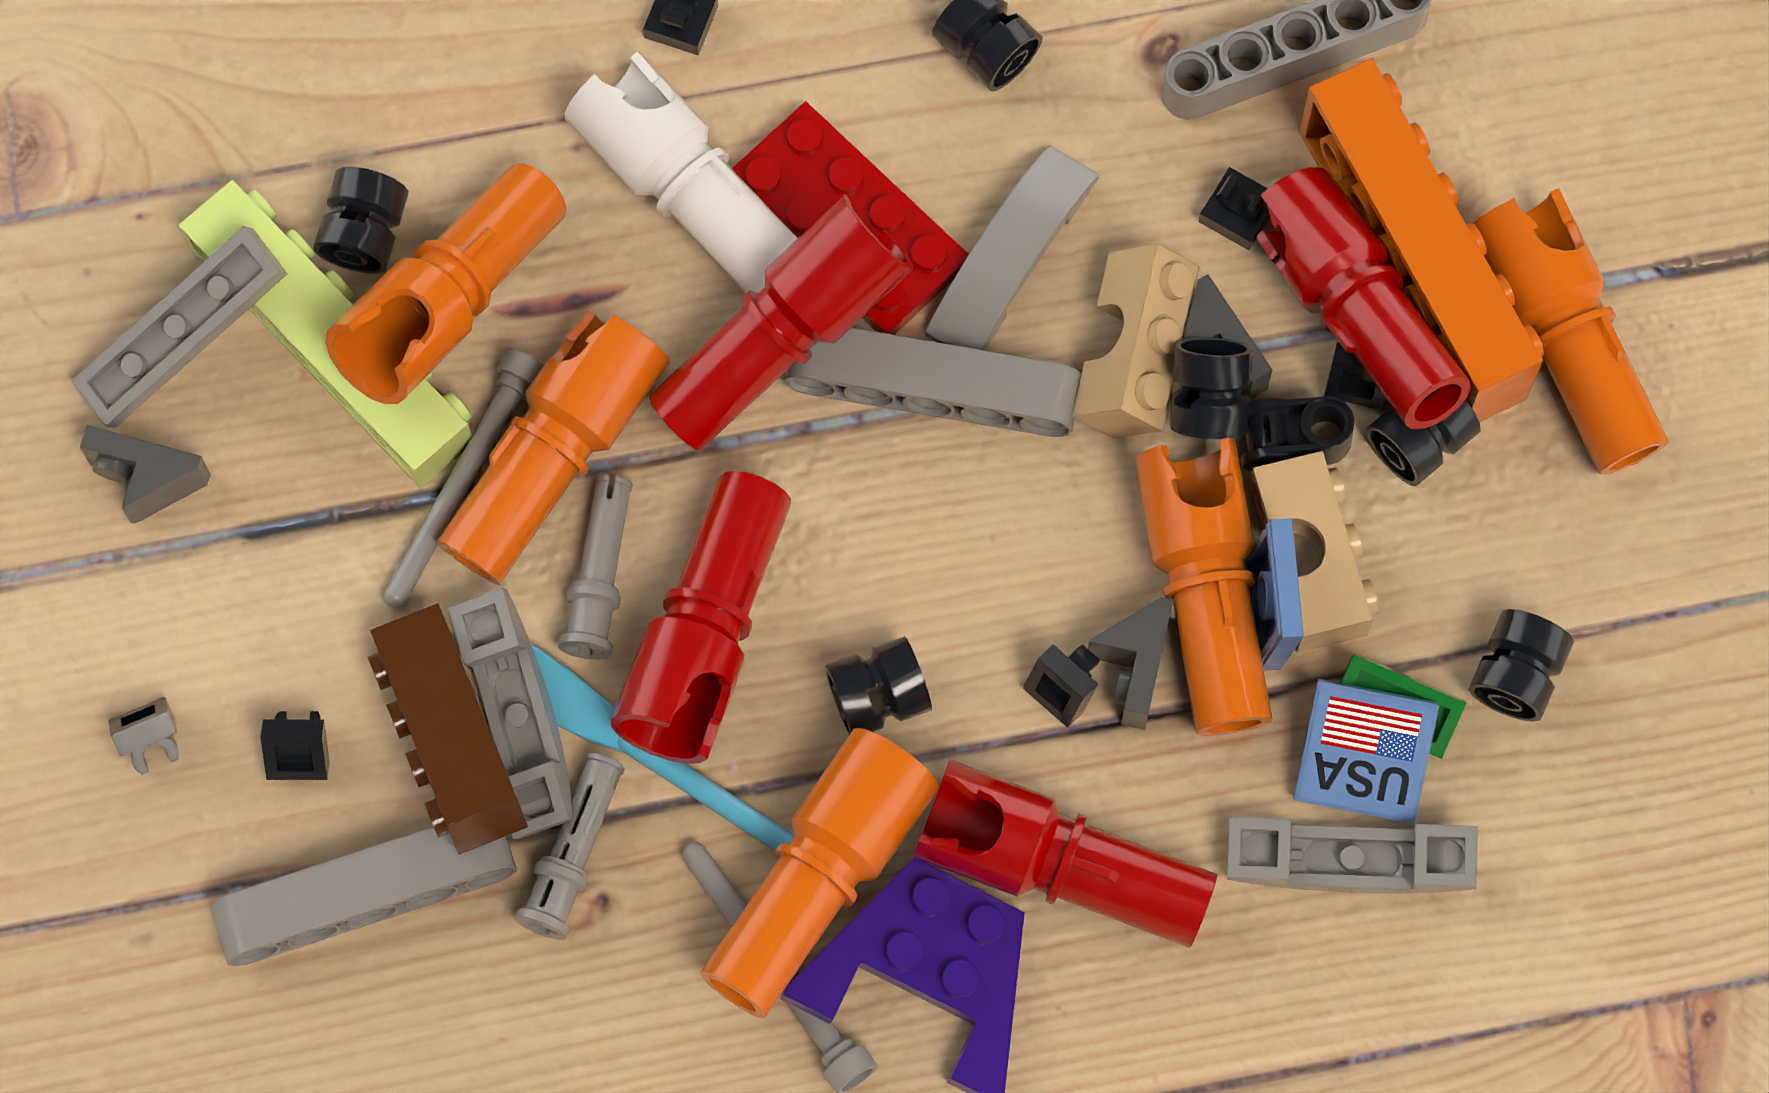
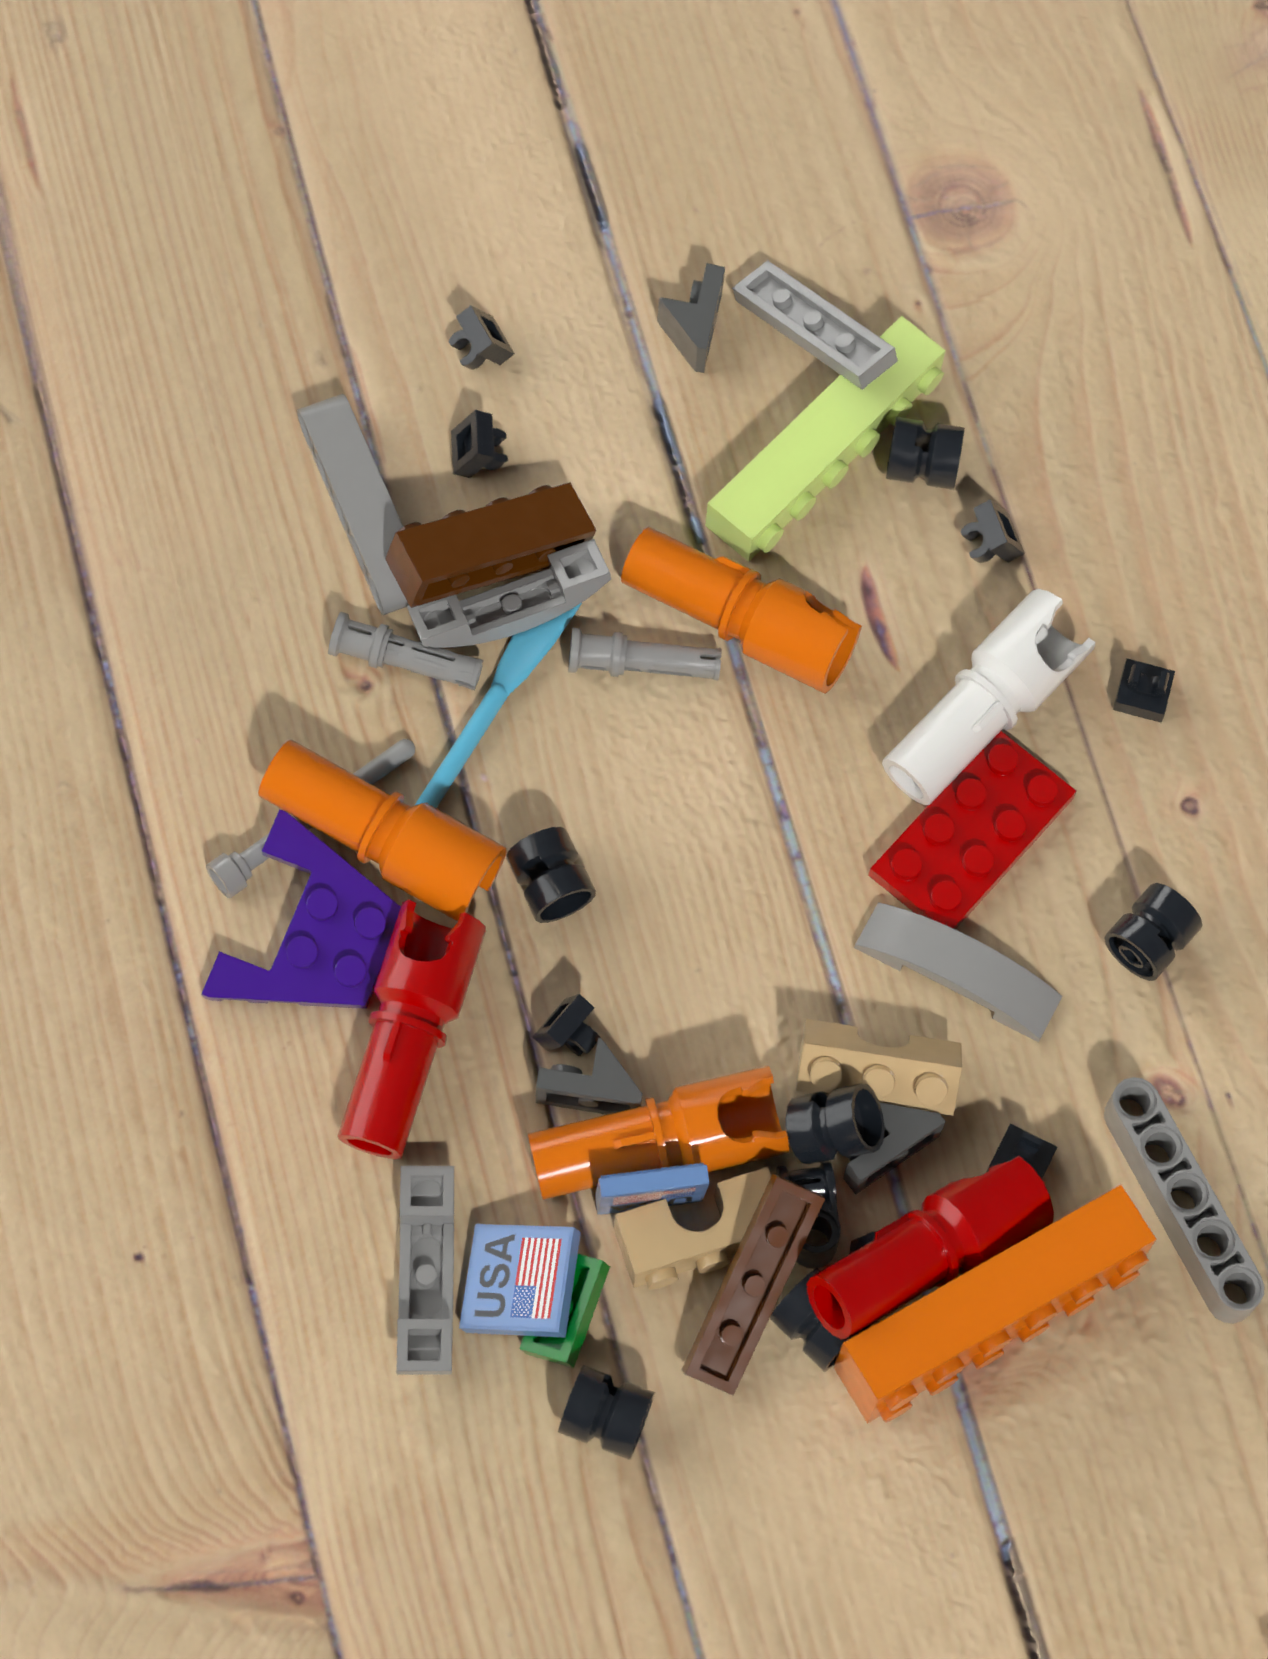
camera: 80 degrees right, 5 degrees down
(430, 300) = (843, 490): orange piece -> none
(469, 152) = (997, 533): none -> tile
(516, 374) = (807, 579): light grey piece -> none
(693, 652) = (565, 722): red piece -> none
(808, 297) = (871, 775): red piece -> none
(941, 381) = (832, 906): light grey beam -> none
(1387, 493) = (753, 1284): none -> reddish brown plate
(1559, 296) = (962, 1430): orange piece -> none

